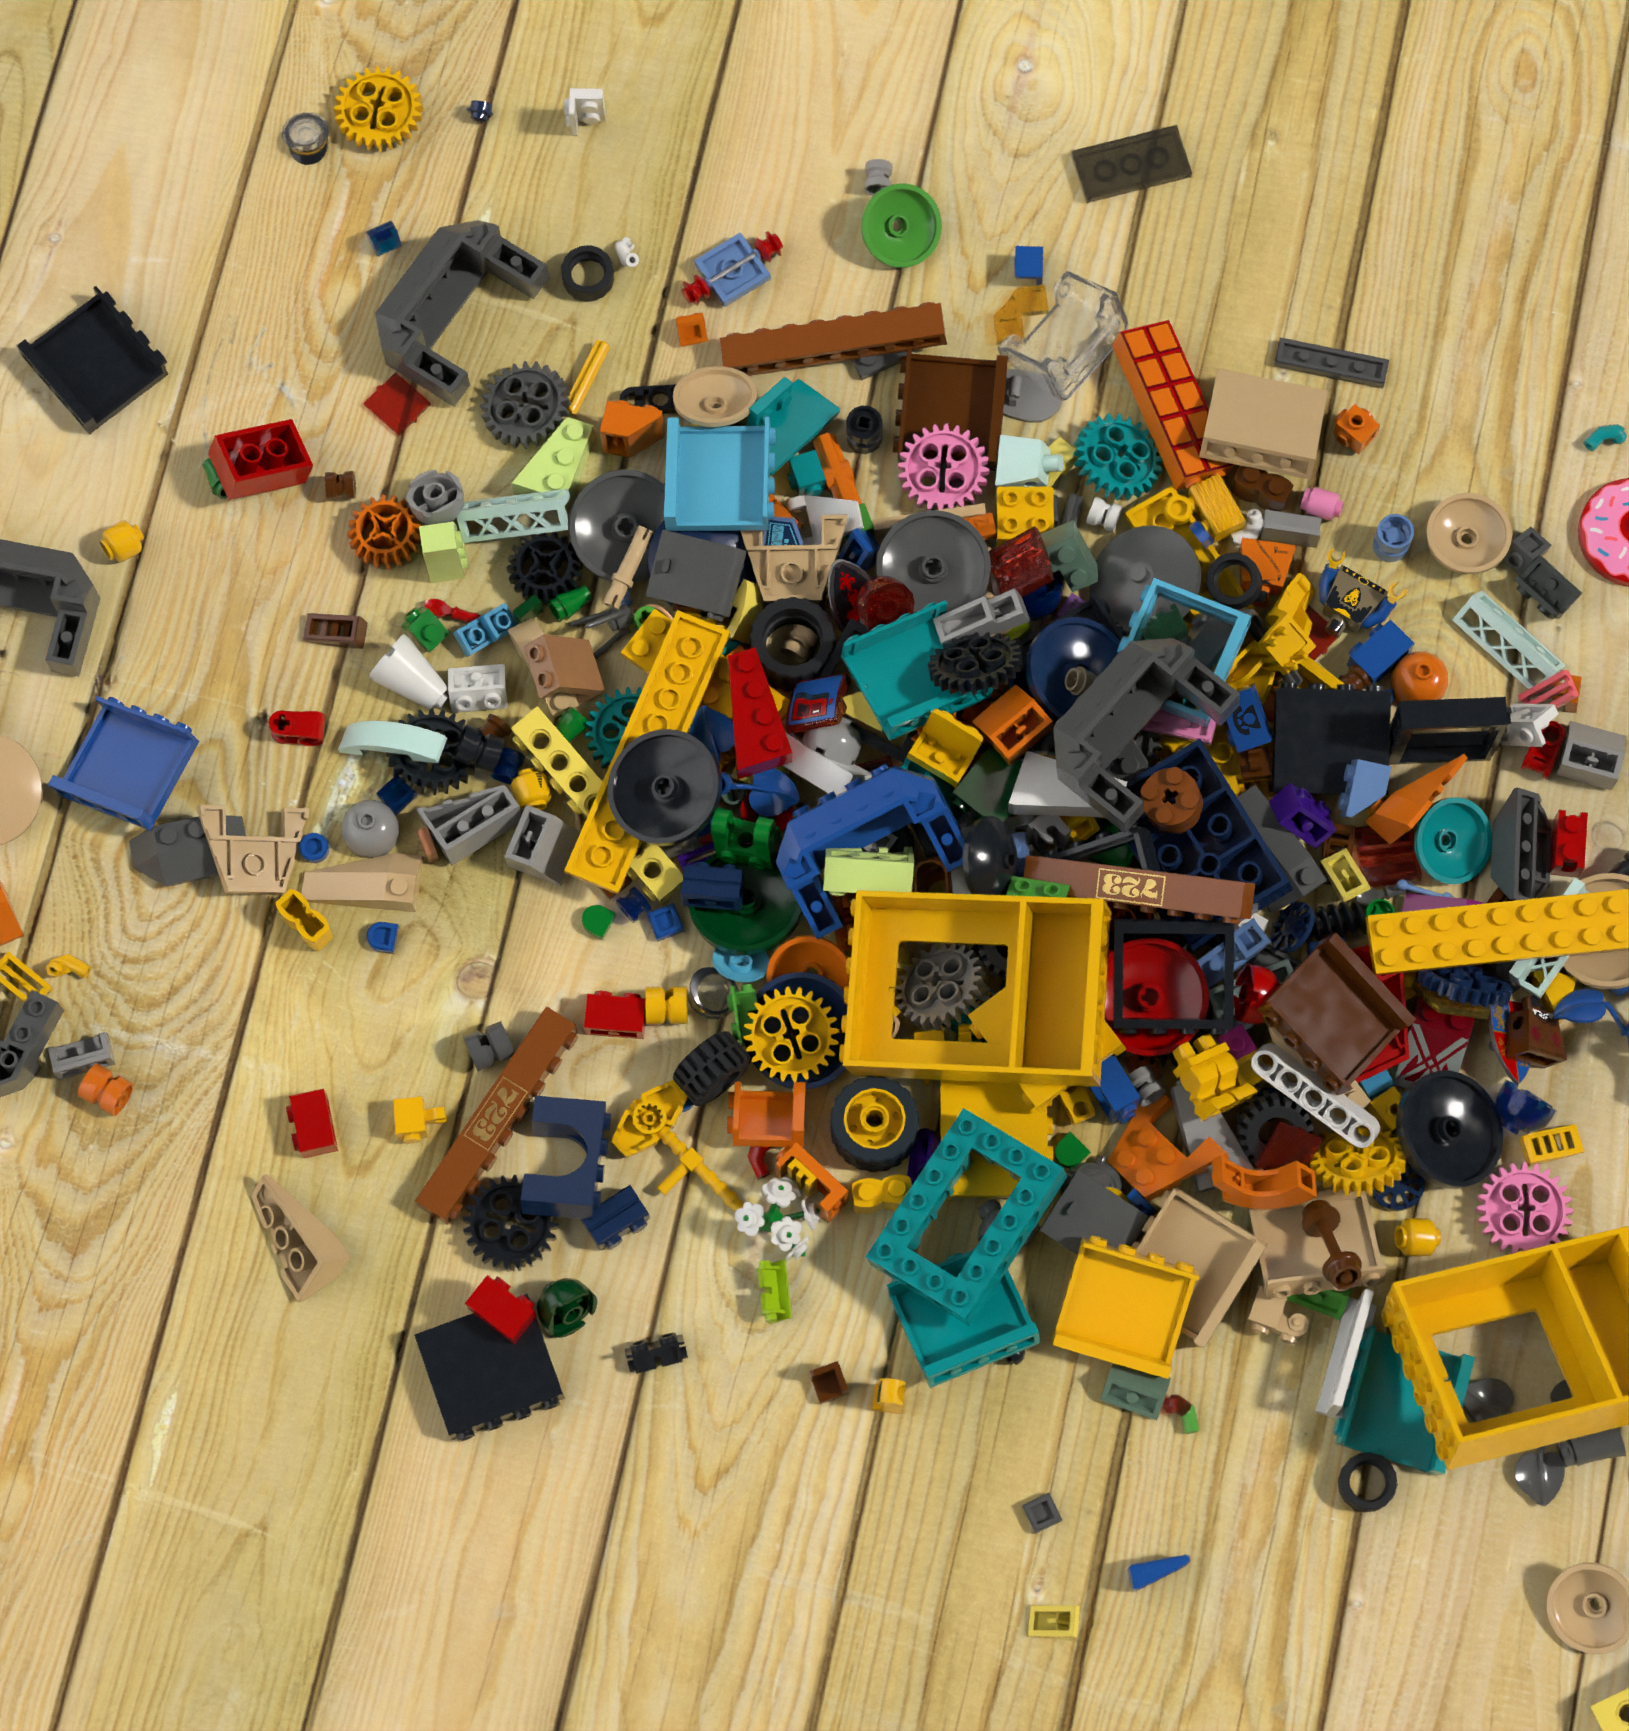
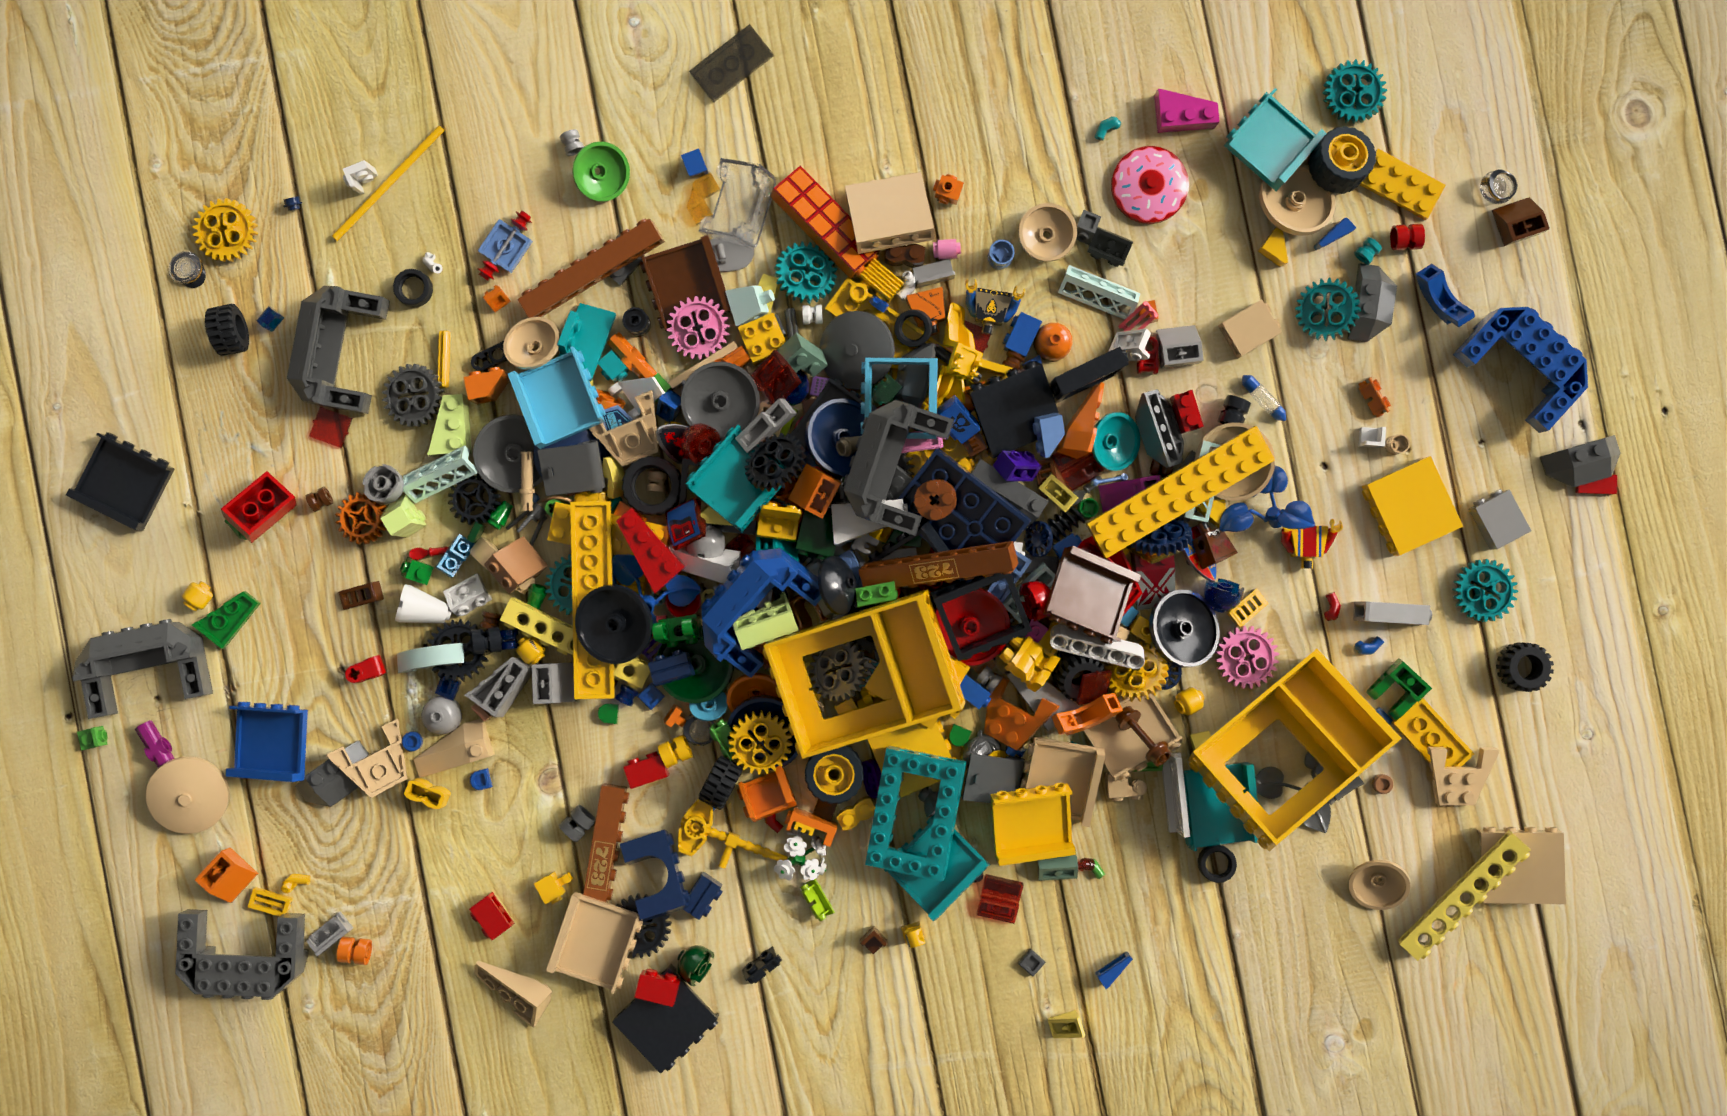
camera: 30 degrees left, 15 degrees up
(146, 589) = (226, 621): none -> green wing
(325, 225) = (227, 329): none -> black tyre
(441, 1210) = (595, 941): none -> tan panel
(614, 135) = (388, 183): none -> yellow piece
(686, 960) = (674, 716): none -> orange tile
(843, 1170) = (825, 810): none -> dark brown slope
(1033, 1402) = (1000, 898): none -> clear red slope
(1331, 362) = (914, 149): dark grey tile -> none

